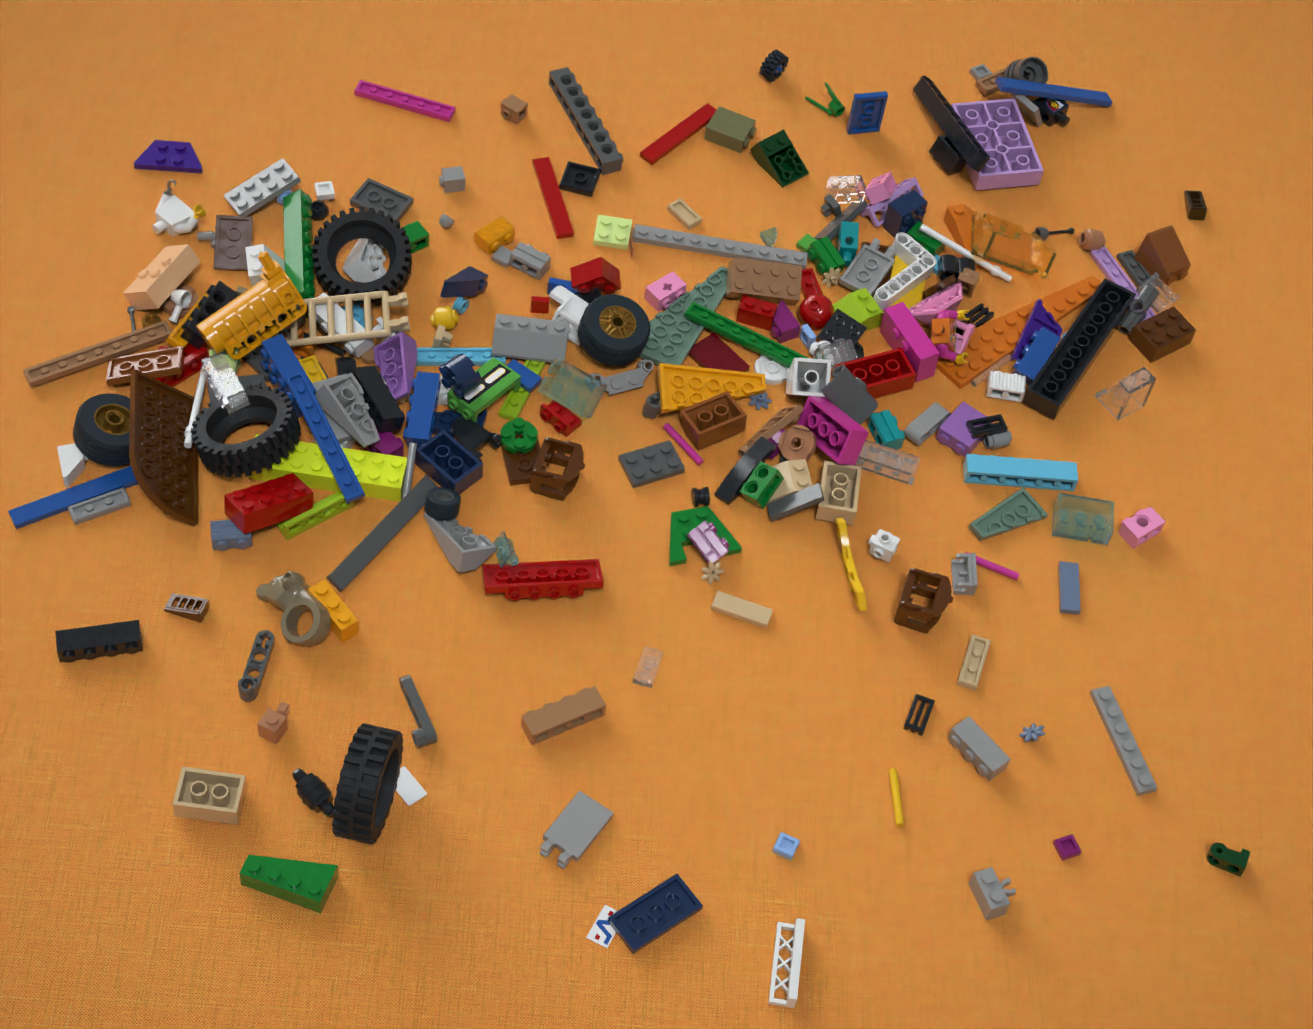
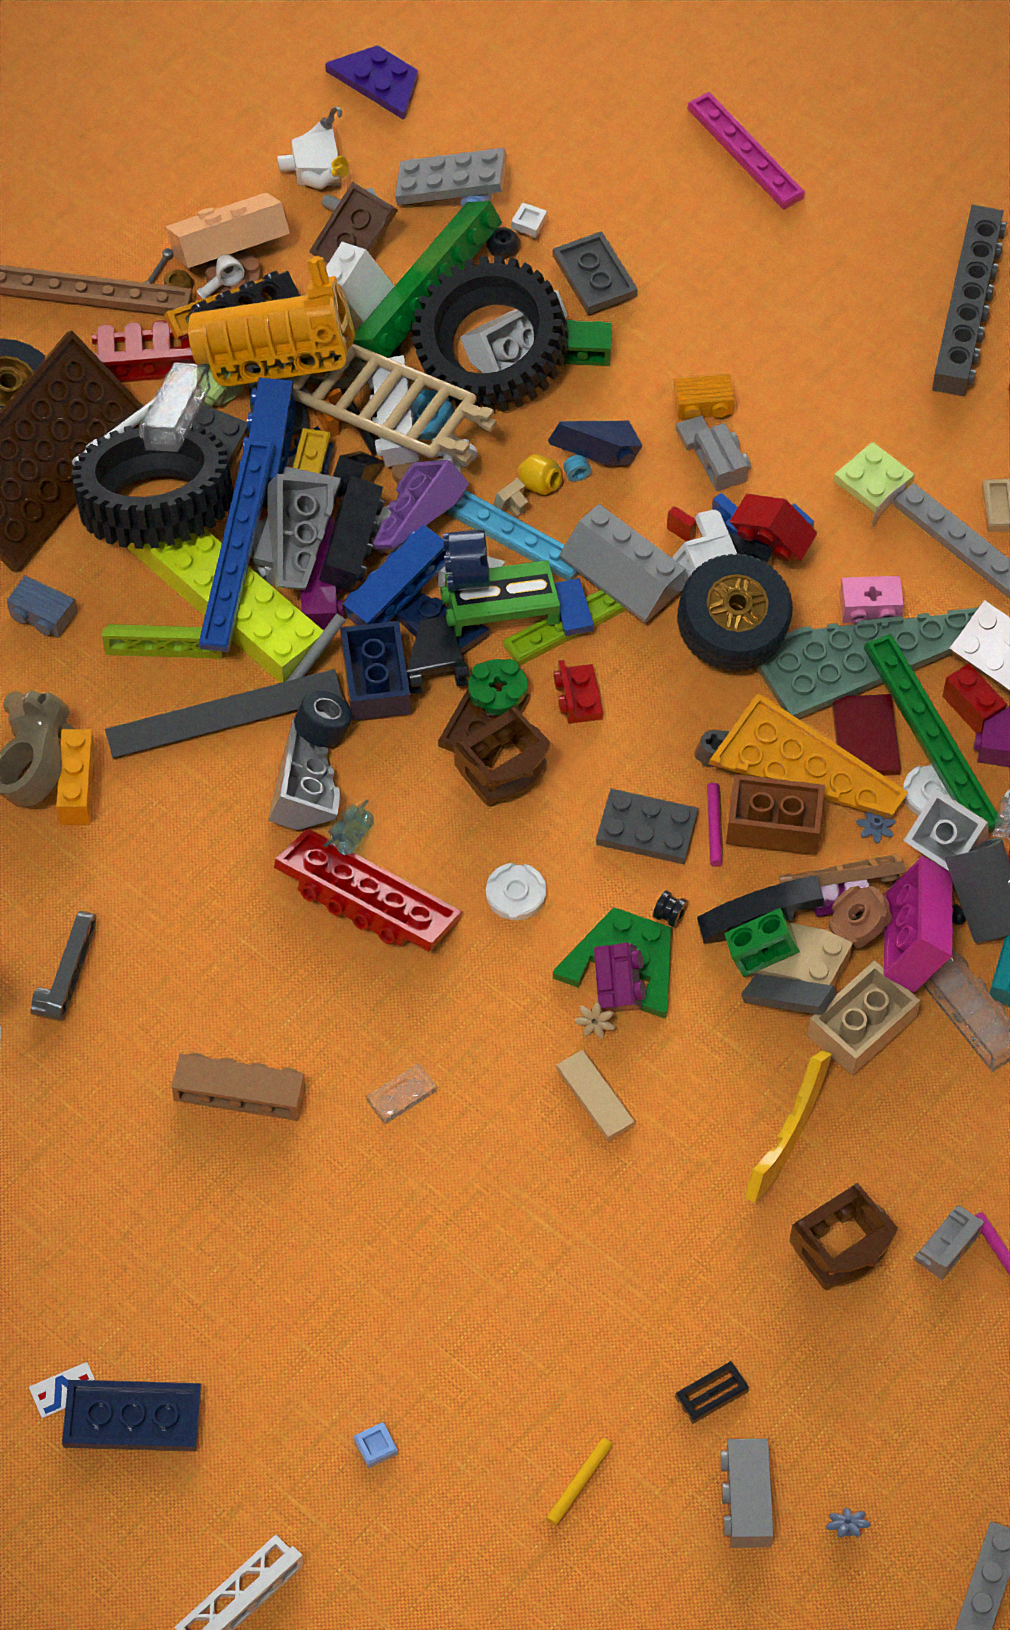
camera: 45 degrees right, 5 degrees up
(152, 363) = (118, 334): dark orange tile -> none
(268, 503) = (107, 592): red brick -> none
(446, 221) = (657, 343): light grey hinge -> none
(452, 179) = (712, 290): light grey brick -> none
(514, 109) = (881, 234): medium nougat brick -> none
(552, 198) = (831, 386): red tile -> none
(572, 388) = (618, 661): clear light blue piece -> none
(575, 829) = (131, 1242): light grey tile -> none
(580, 179) = (893, 379): black tile -> none
(614, 534) = (515, 891): none -> white tile
(626, 380) = (702, 690): light grey plate -> none
(883, 545) = (864, 1129): white brick -> none
(973, 662) = (854, 1372): tan tile -> none

